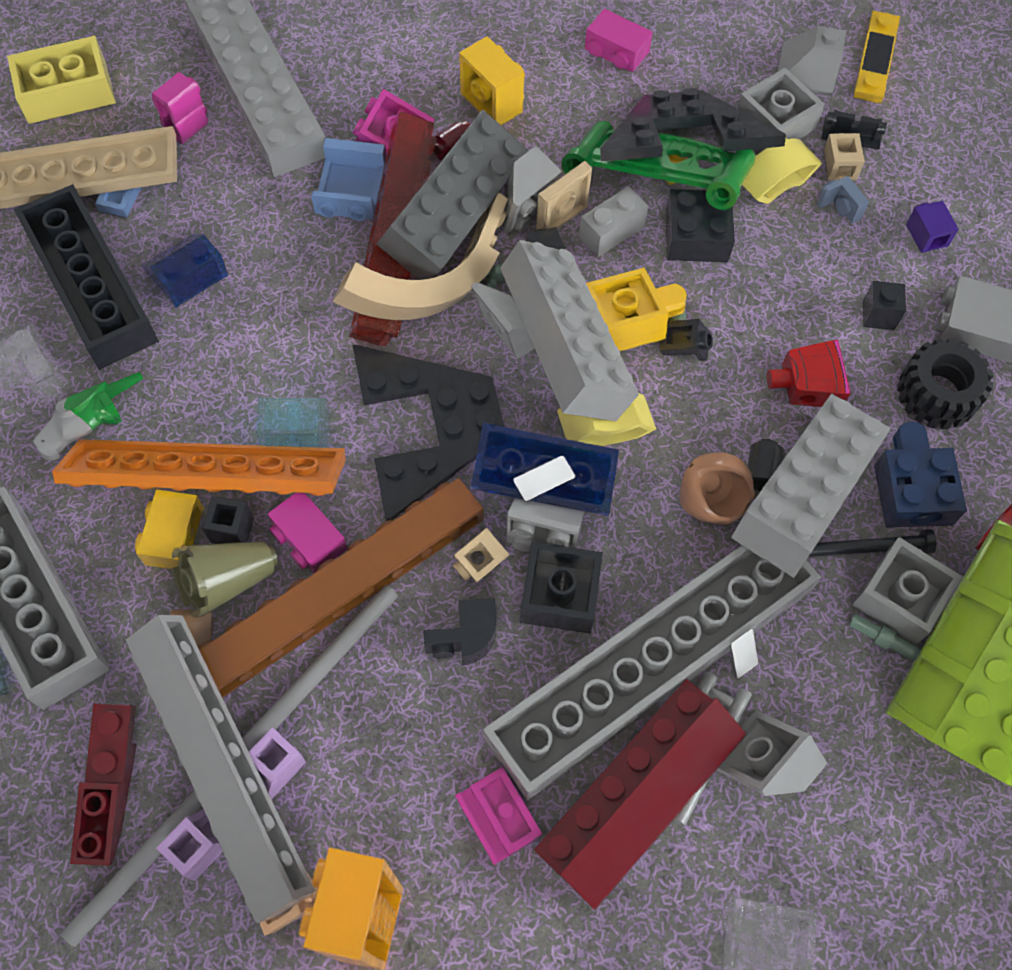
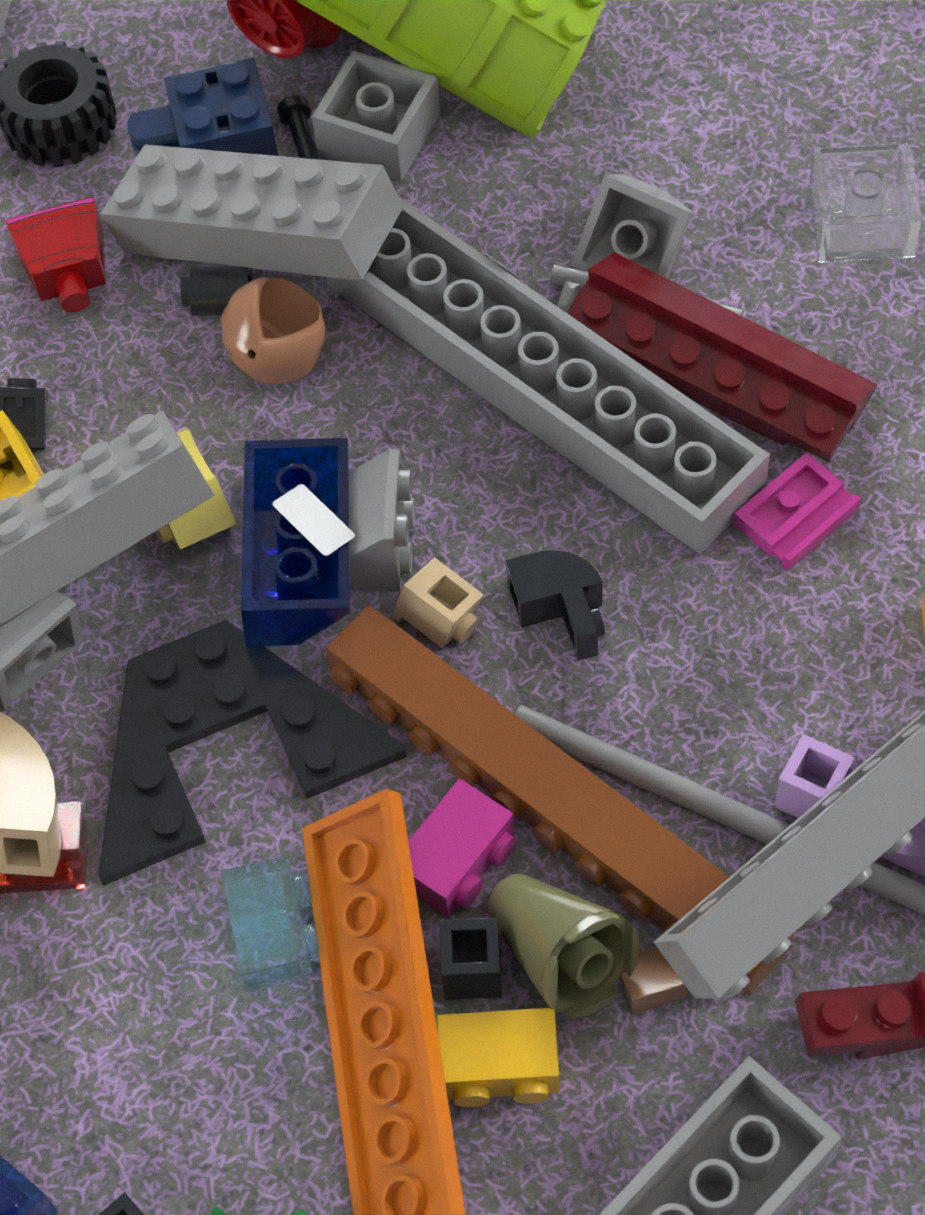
camera: 95 degrees left, 5 degrees down
(561, 587) = (466, 489): black brick -> none
(884, 637) = (438, 143): sand green bar -> none

